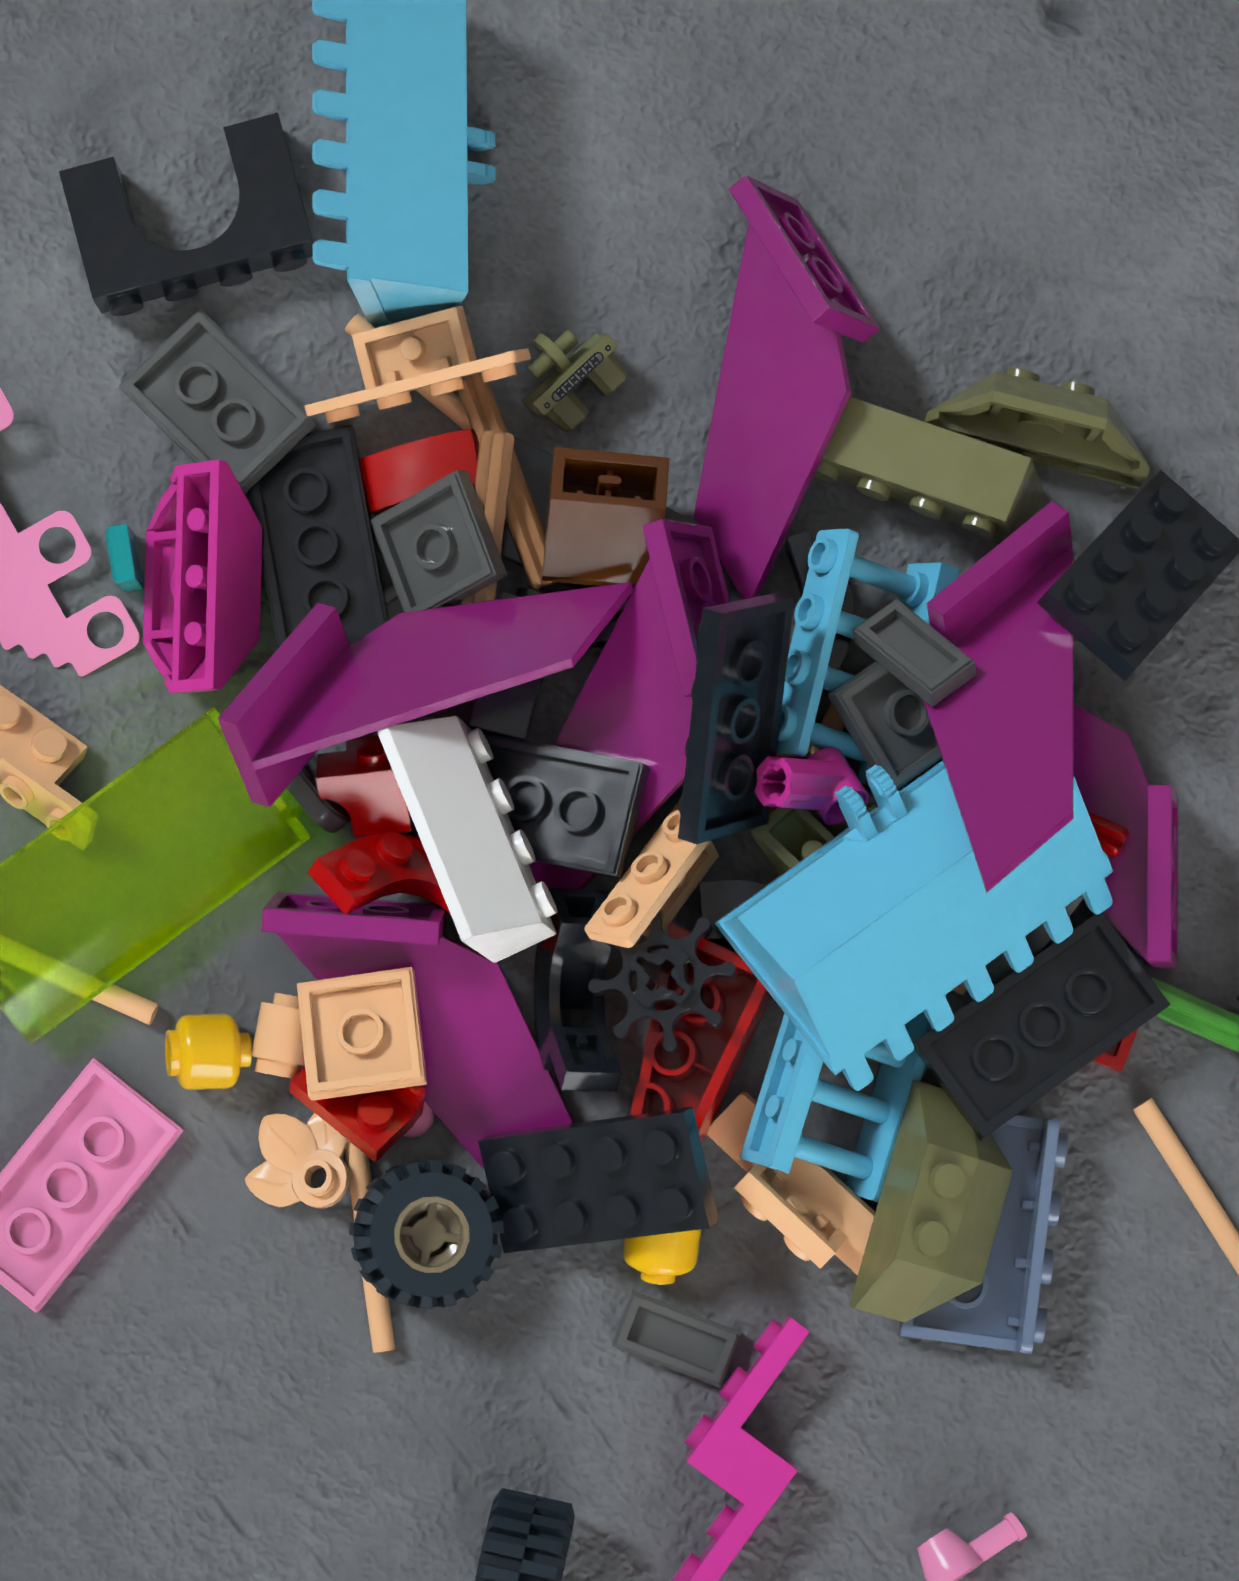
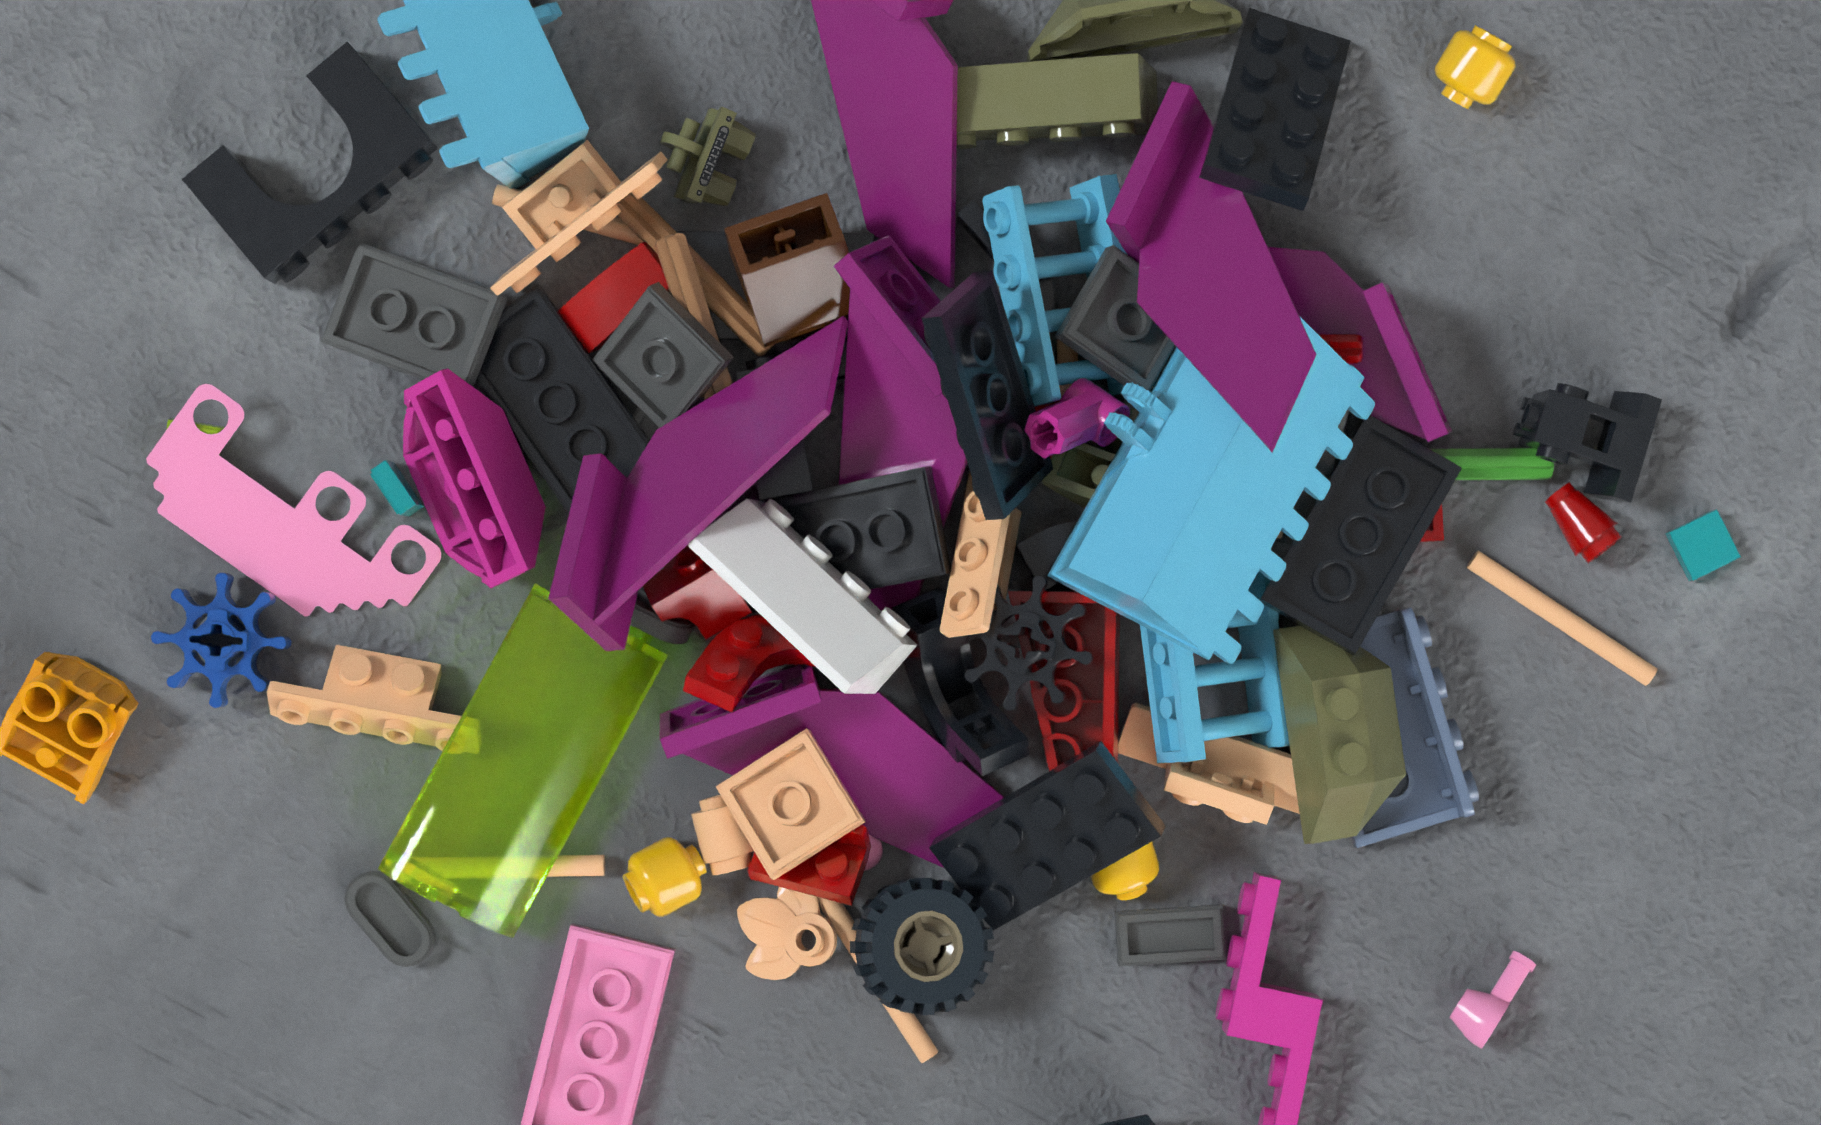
camera: 25 degrees left, 5 degrees up
(914, 652) = (1113, 267): dark grey tile -> none

